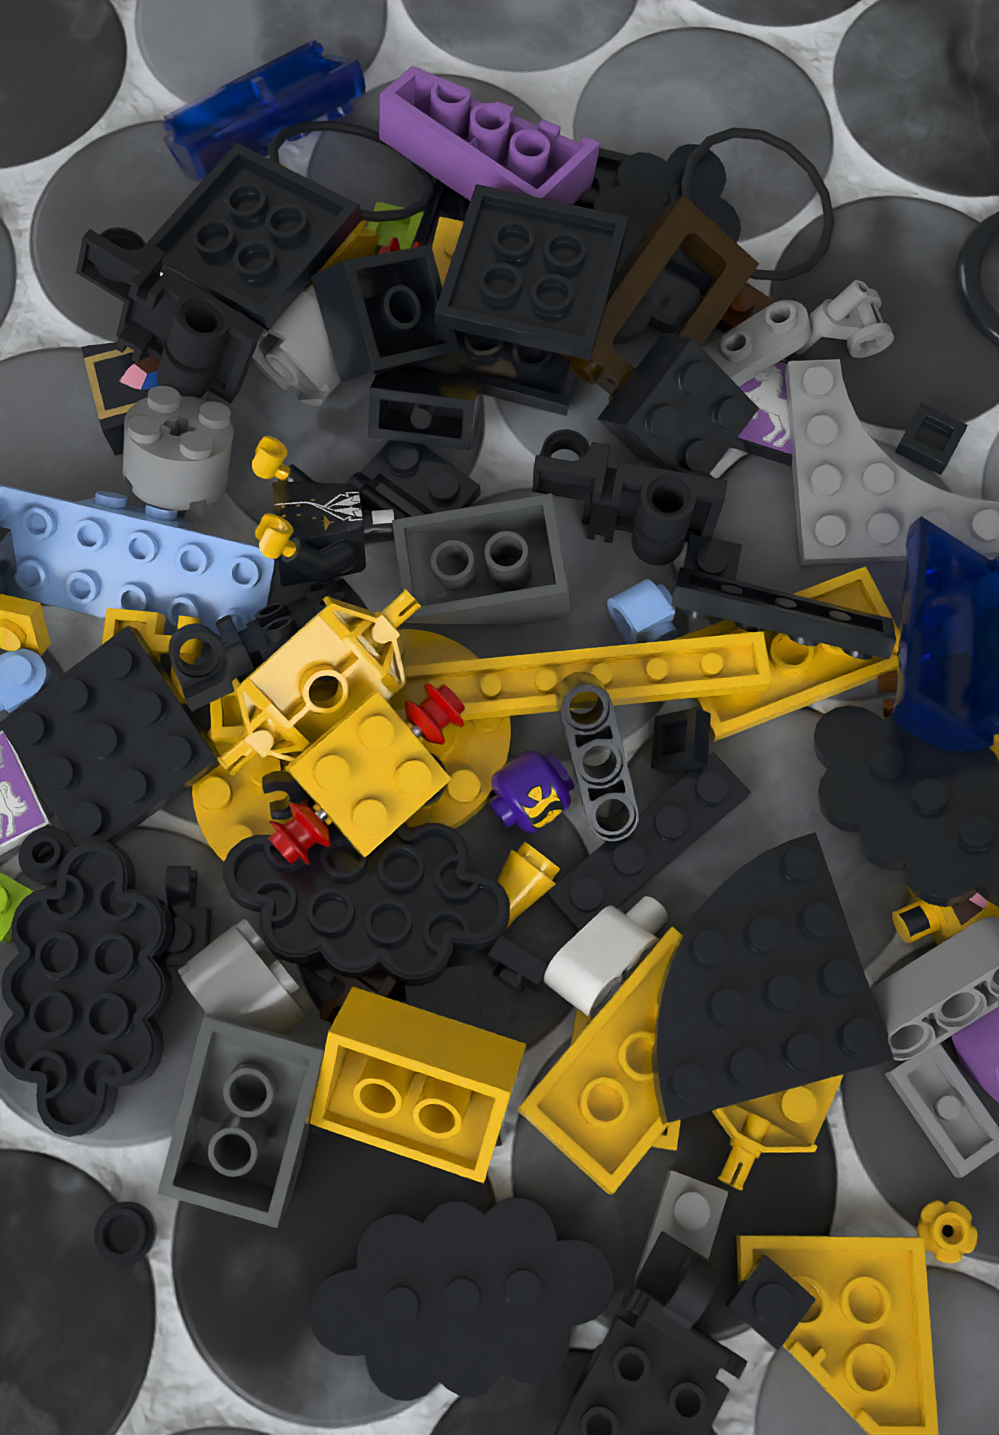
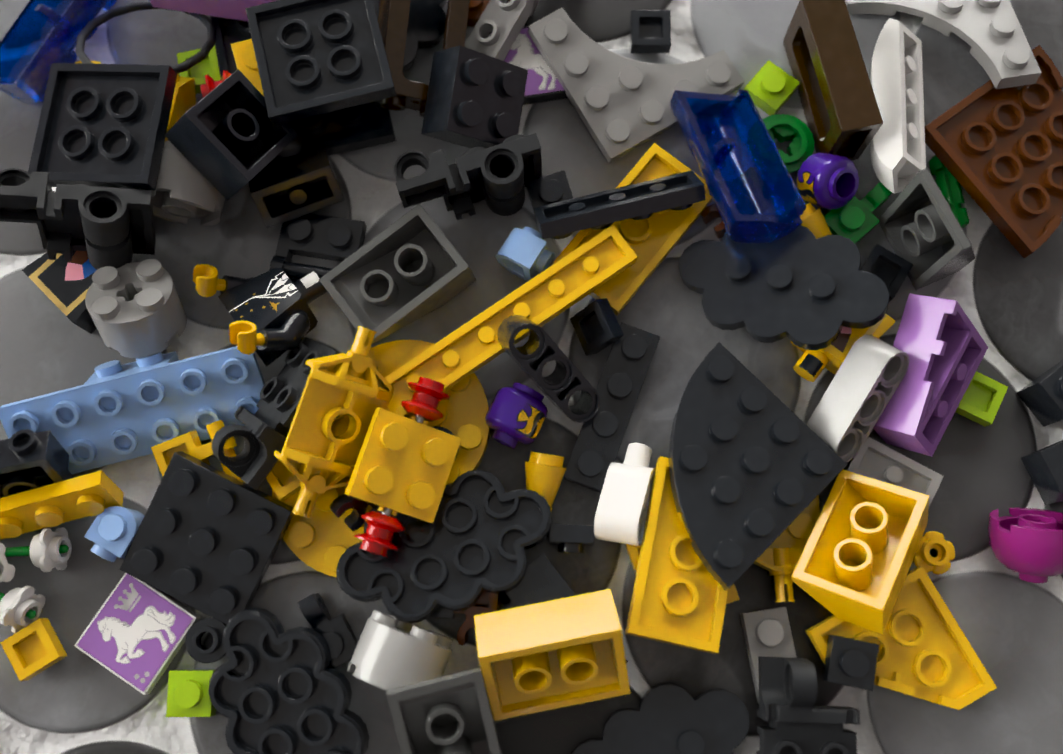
camera: 25 degrees left, 5 degrees up
(859, 1173) = (862, 549): none -> yellow slope

